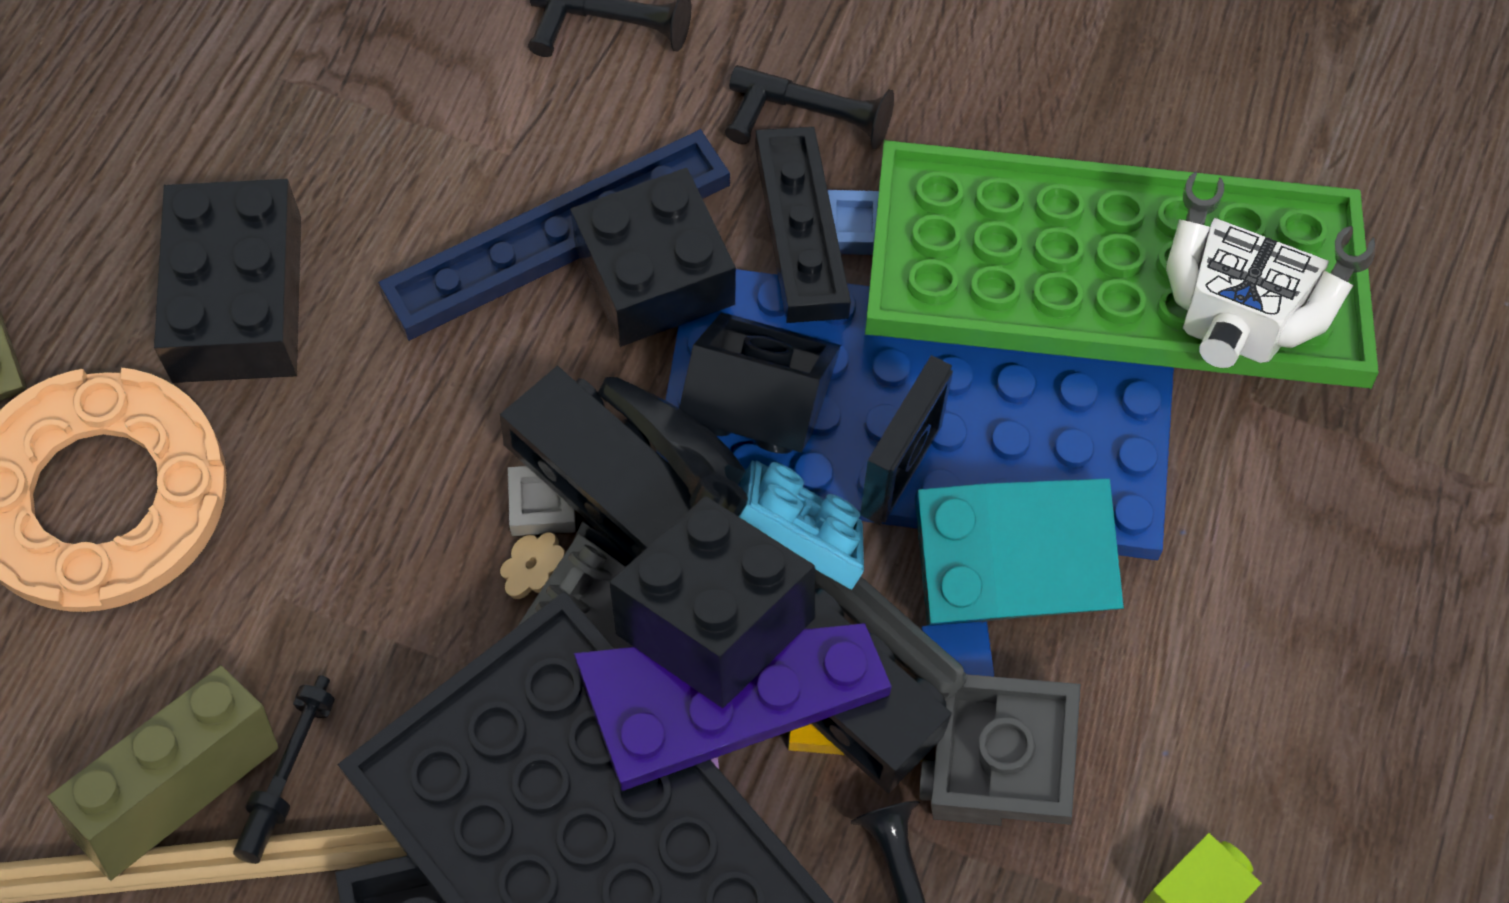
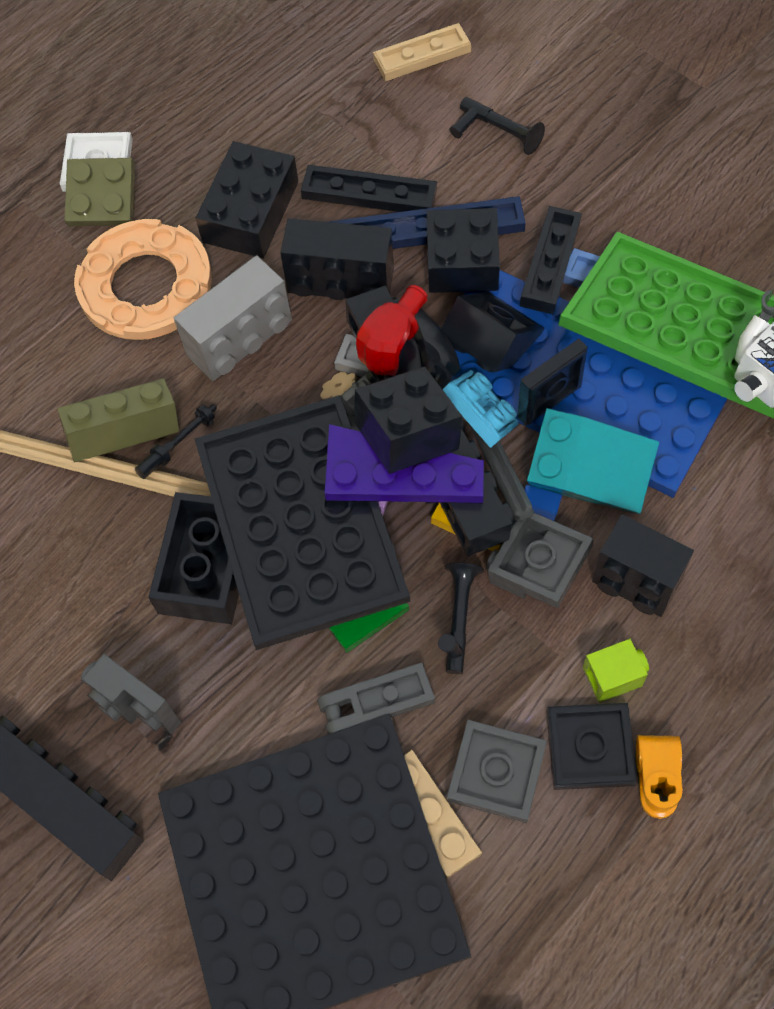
camera: 30 degrees right, 0 degrees up
(302, 510) = (234, 318): none -> light grey brick
(433, 196) = (367, 189): none -> black plate
(443, 342) = (336, 258): none -> black brick
(610, 451) = (387, 330): none -> red piece
(757, 87) = (616, 217): black piece -> none
(1175, 702) = (641, 566): none -> black brick

